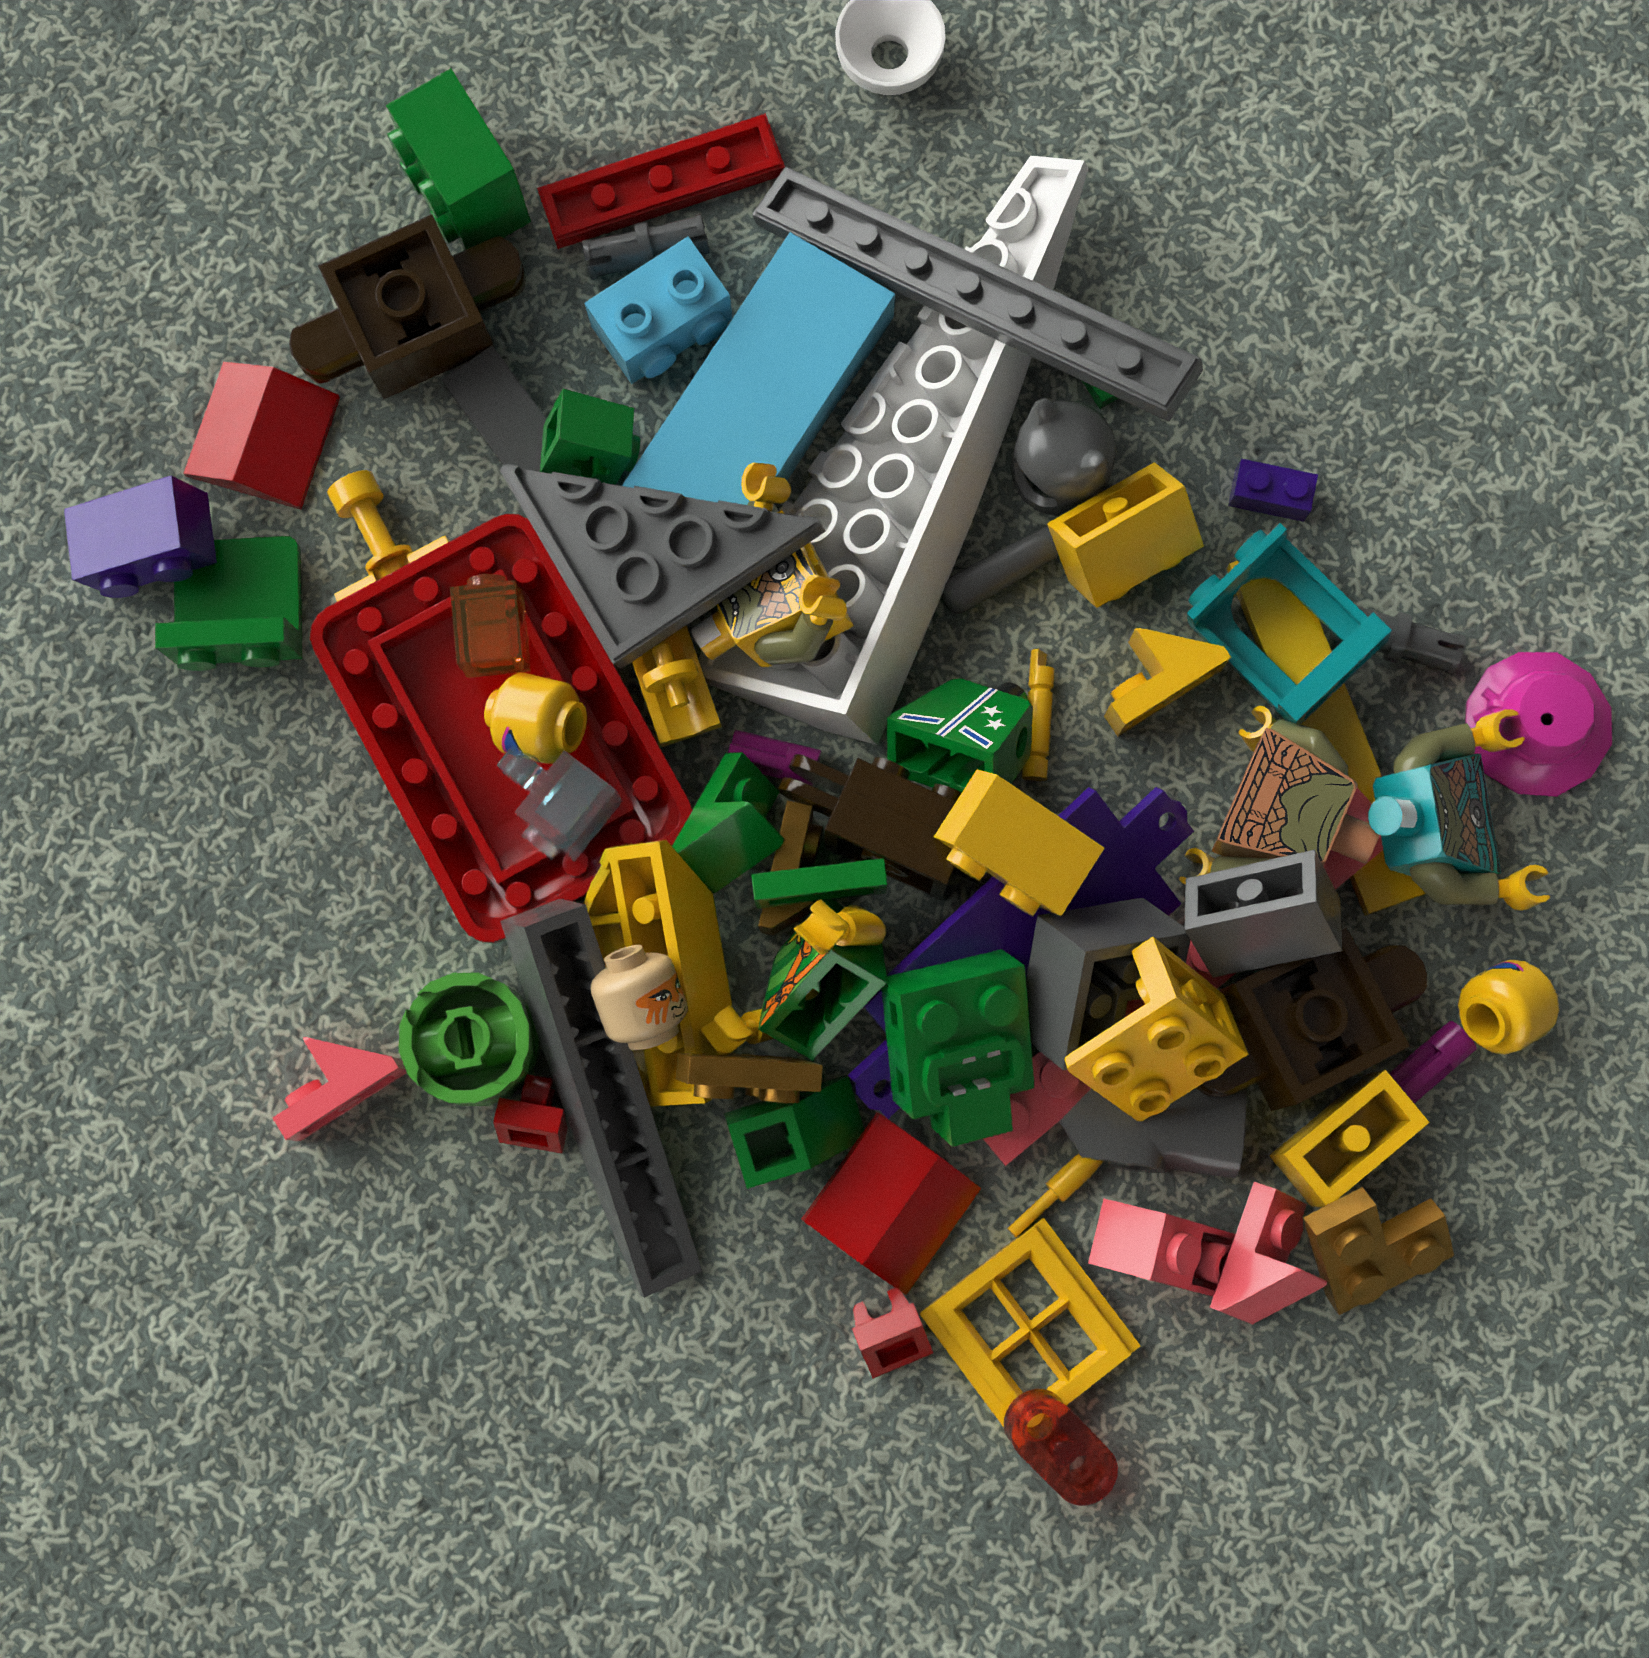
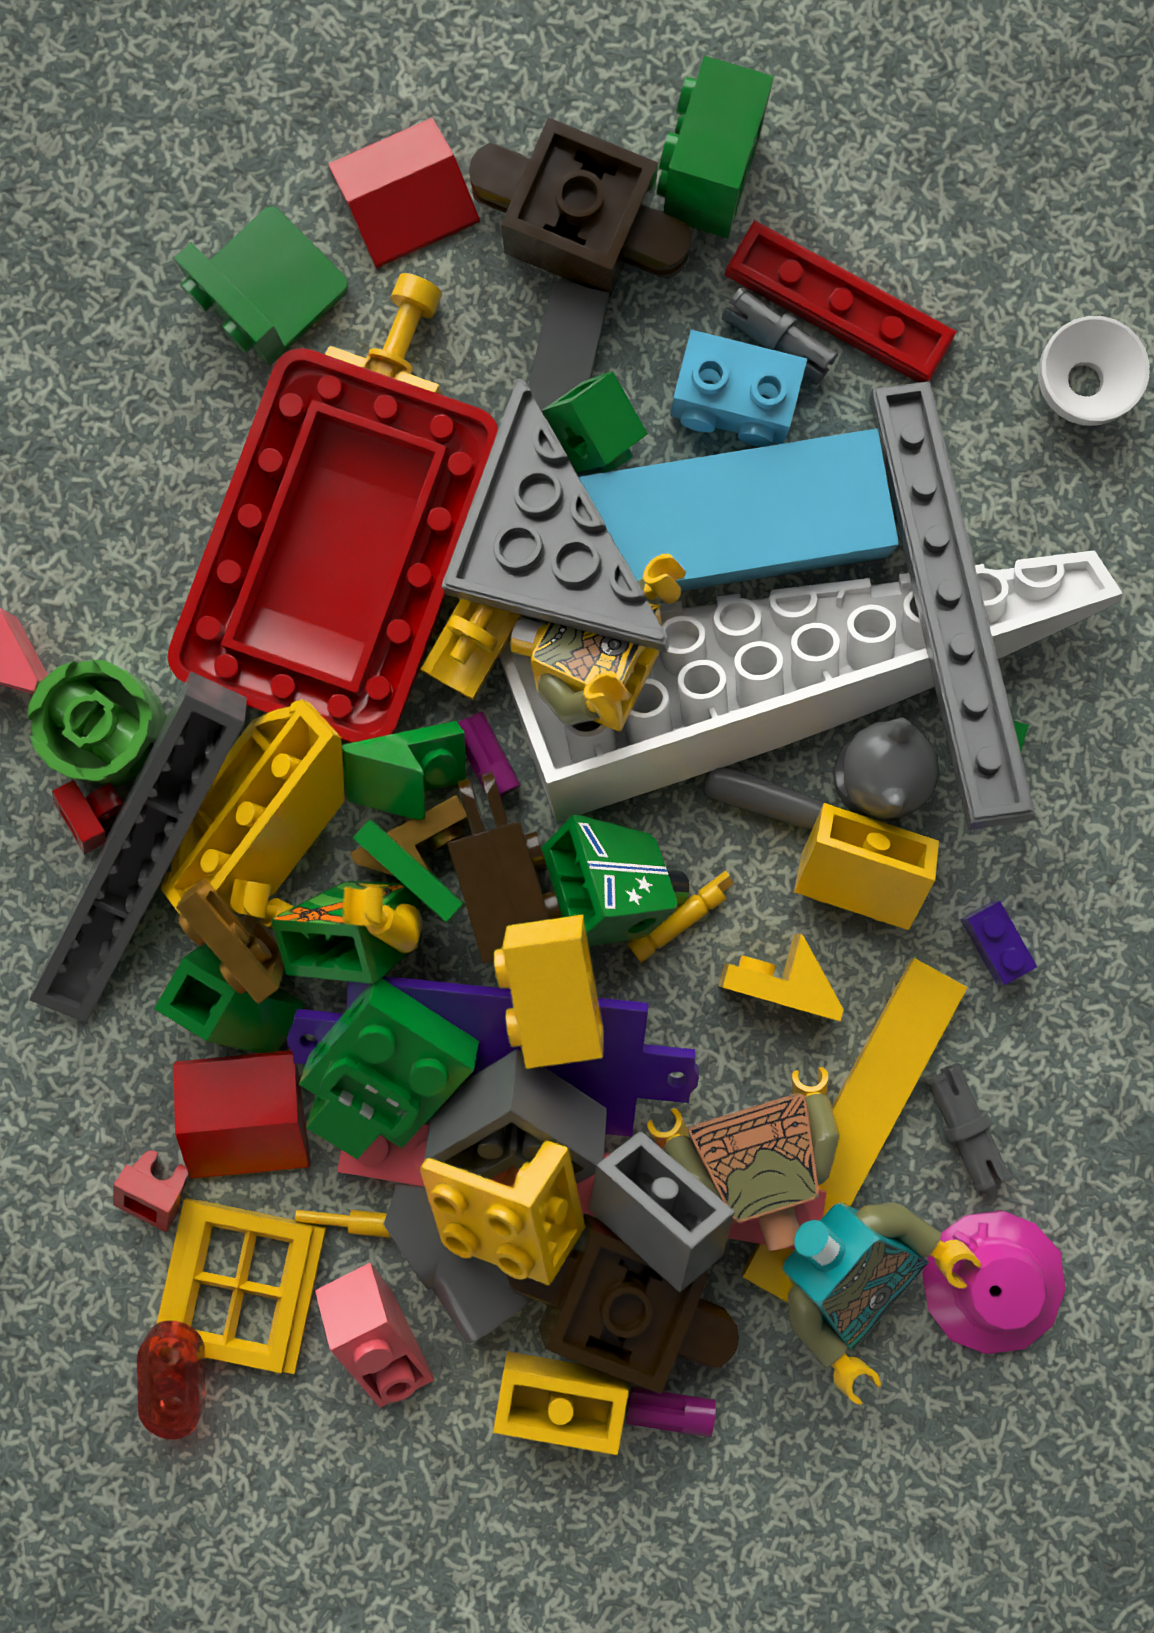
camera: 45 degrees right, 5 degrees up
(140, 537) = (249, 175): piece -> none
(490, 626) = (392, 475): clear orange brick -> none
(536, 717) = (354, 567): yellow head -> none
(563, 804) = (311, 641): clear light blue brick -> none
(639, 998) = (214, 818): tan head -> none
(1256, 1272) = (414, 1412): coral slope -> none
(1279, 560) = (947, 997): teal panel -> none
(1370, 1257) = (486, 1483): pearl gold plate -> none
(1508, 1006) = (758, 1436): yellow head -> none

